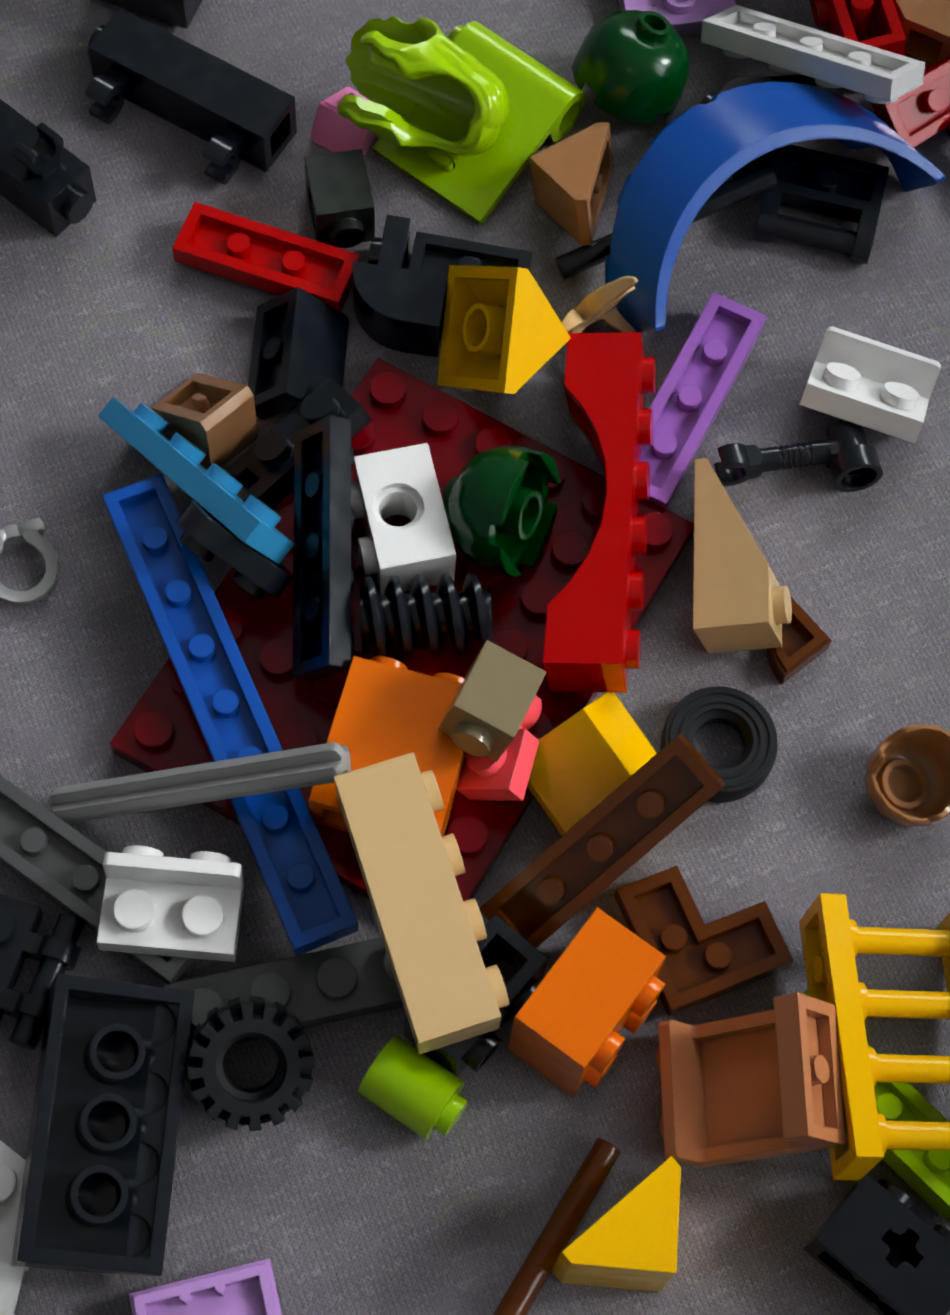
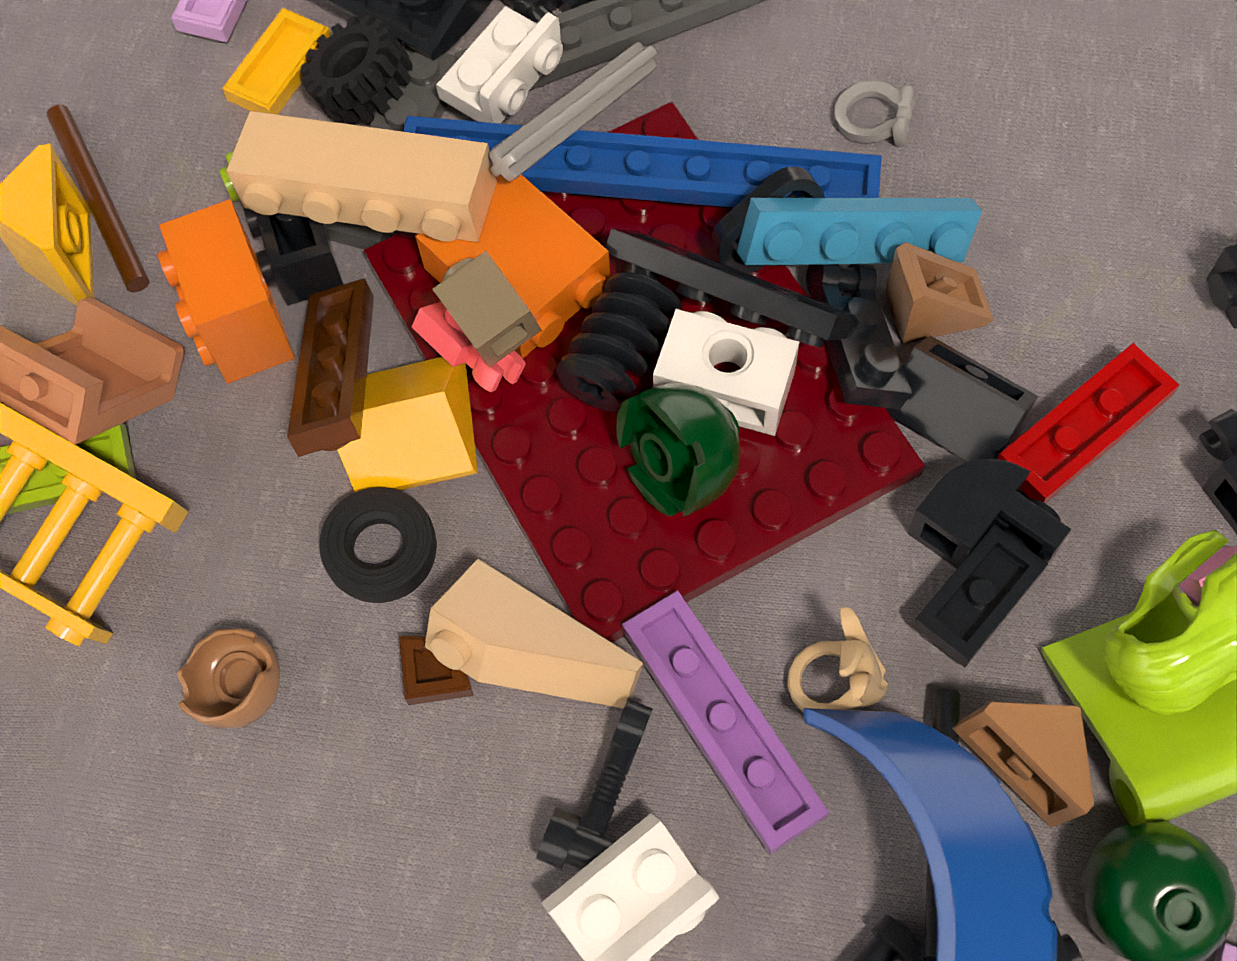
camera: 130 degrees right, 0 degrees up
(267, 1185) = (273, 65): none -> yellow tile
(340, 198) = (1123, 516): pearl dark grey brick -> none
(496, 329) = (876, 558): yellow slope -> none
(590, 619) = (748, 615): red arch -> none
(700, 957) = (211, 420): reddish brown plate -> none

